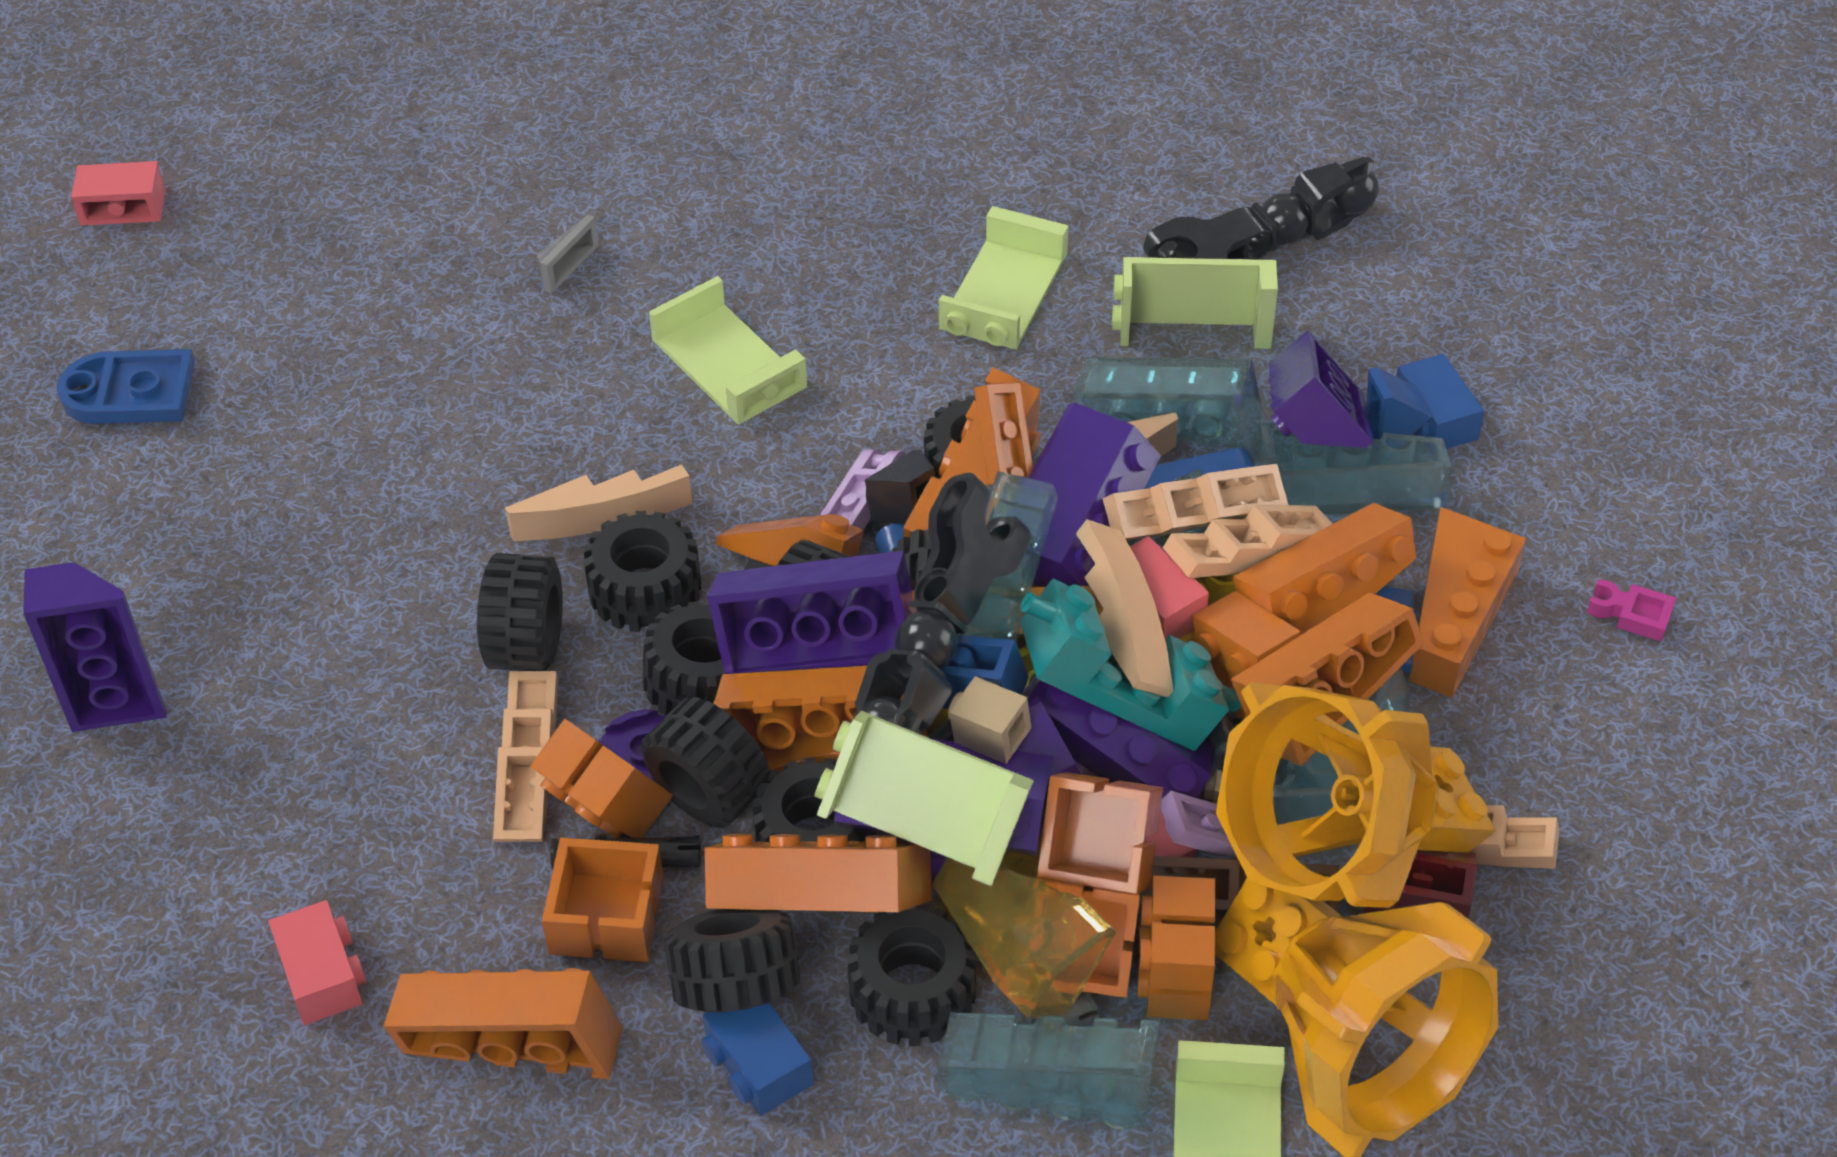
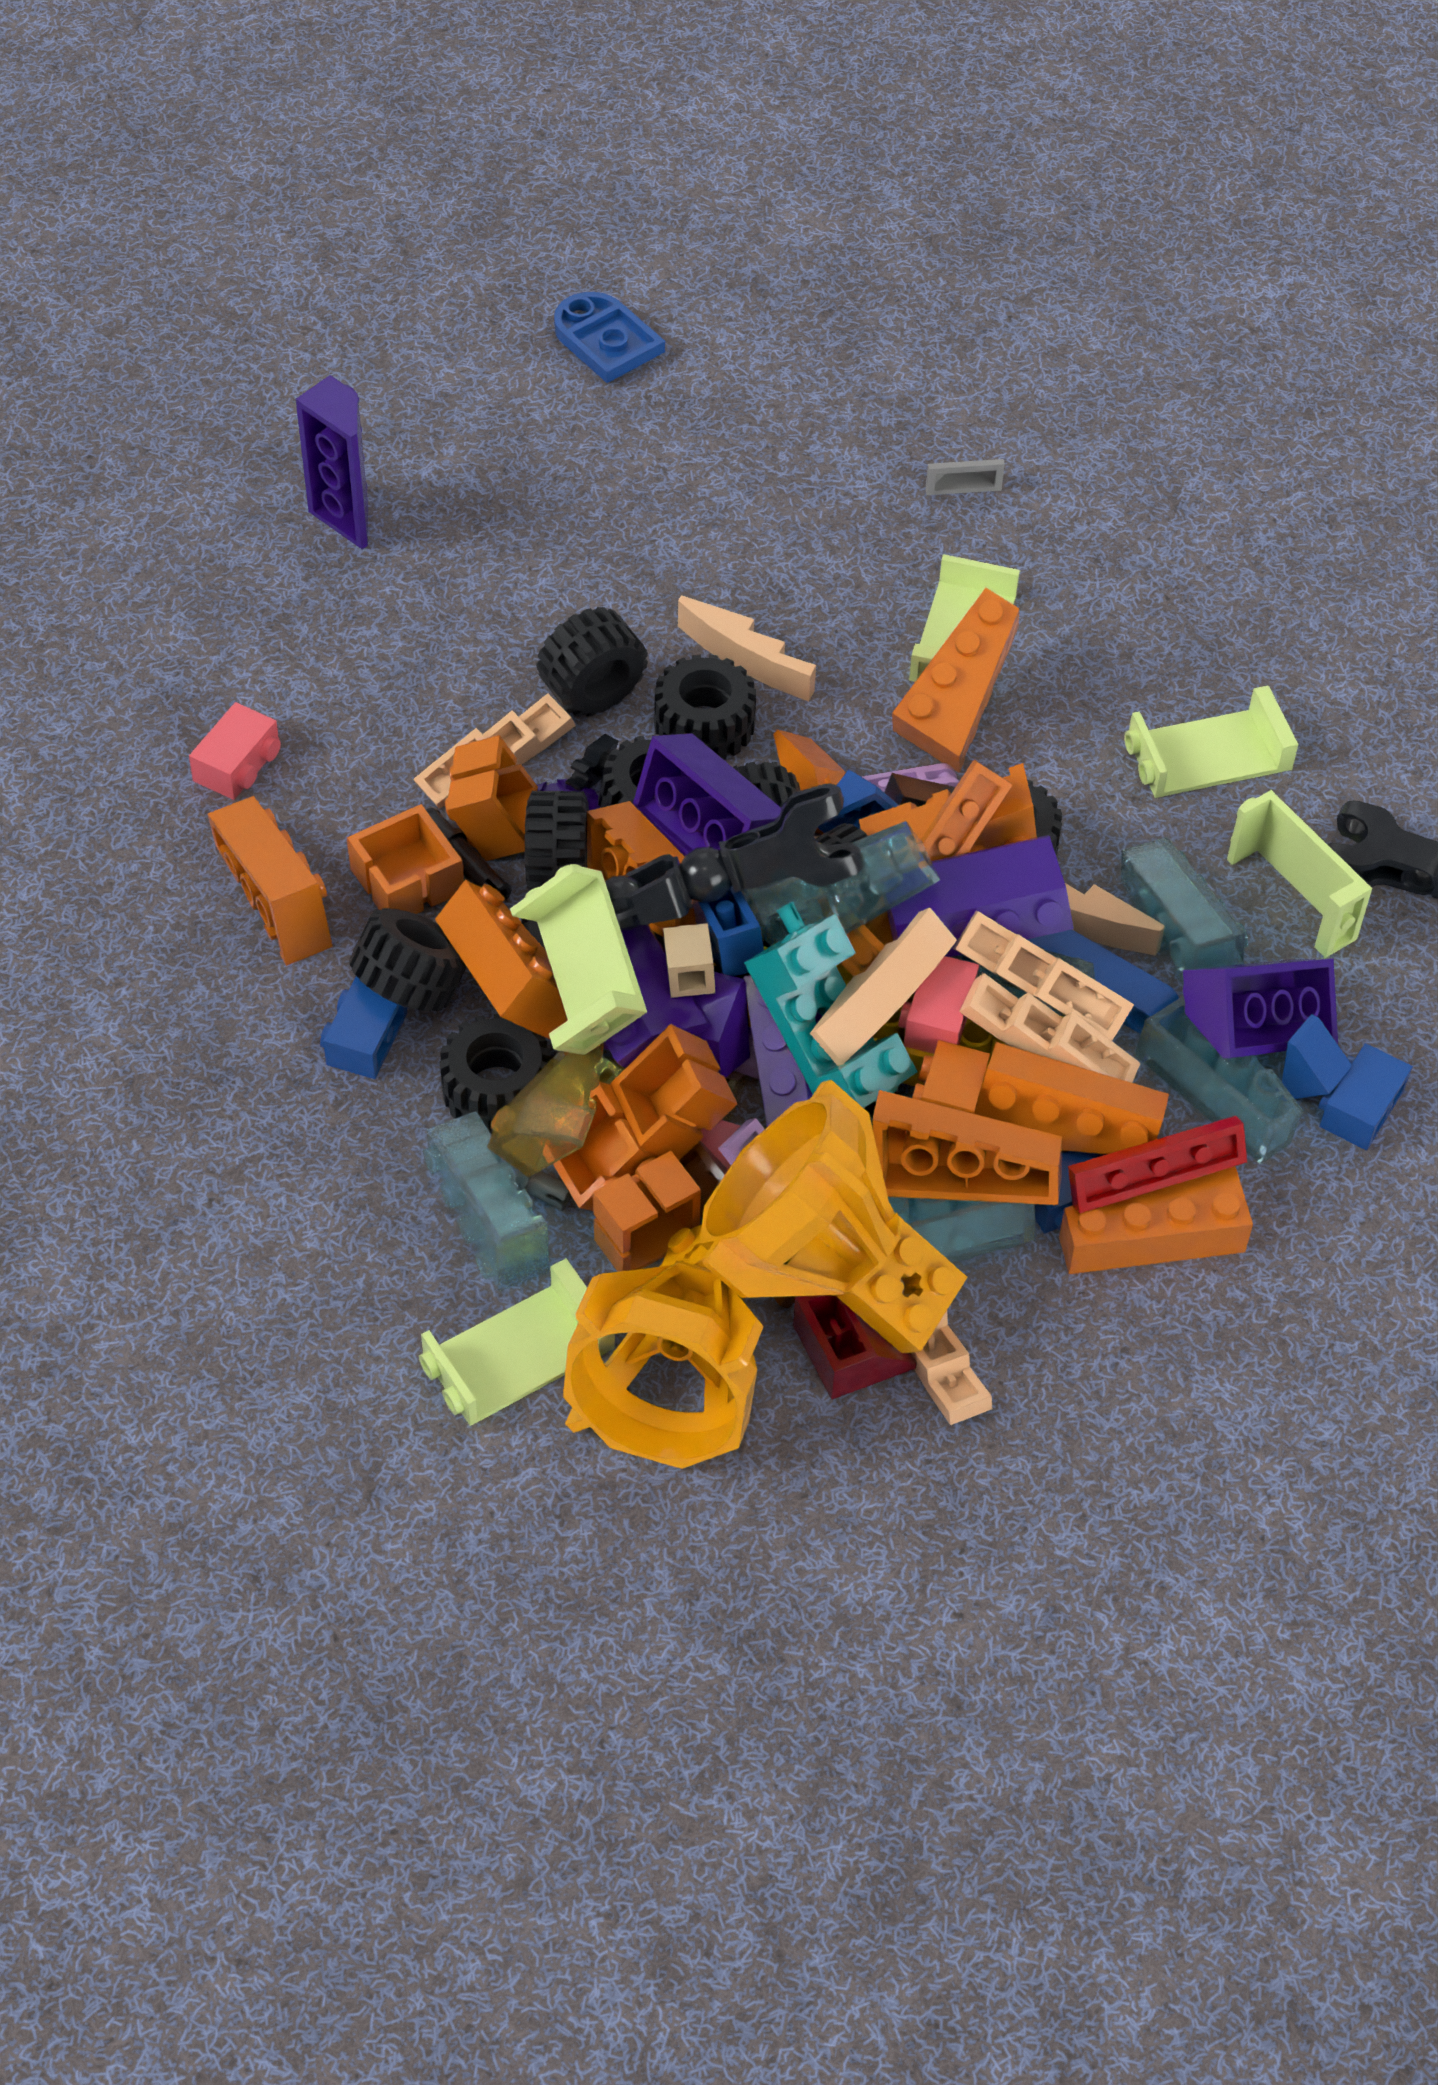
camera: 50 degrees right, 5 degrees up
(118, 193) = (766, 205): coral brick -> none
(626, 685) = (591, 767): none -> black plate
(806, 382) = (954, 688): none -> orange wedge
(877, 519) = (860, 801): none -> blue slope
(1436, 551) = (1157, 1164): none -> red plate
(1638, 611) = (1271, 1352): dark pink plate -> none

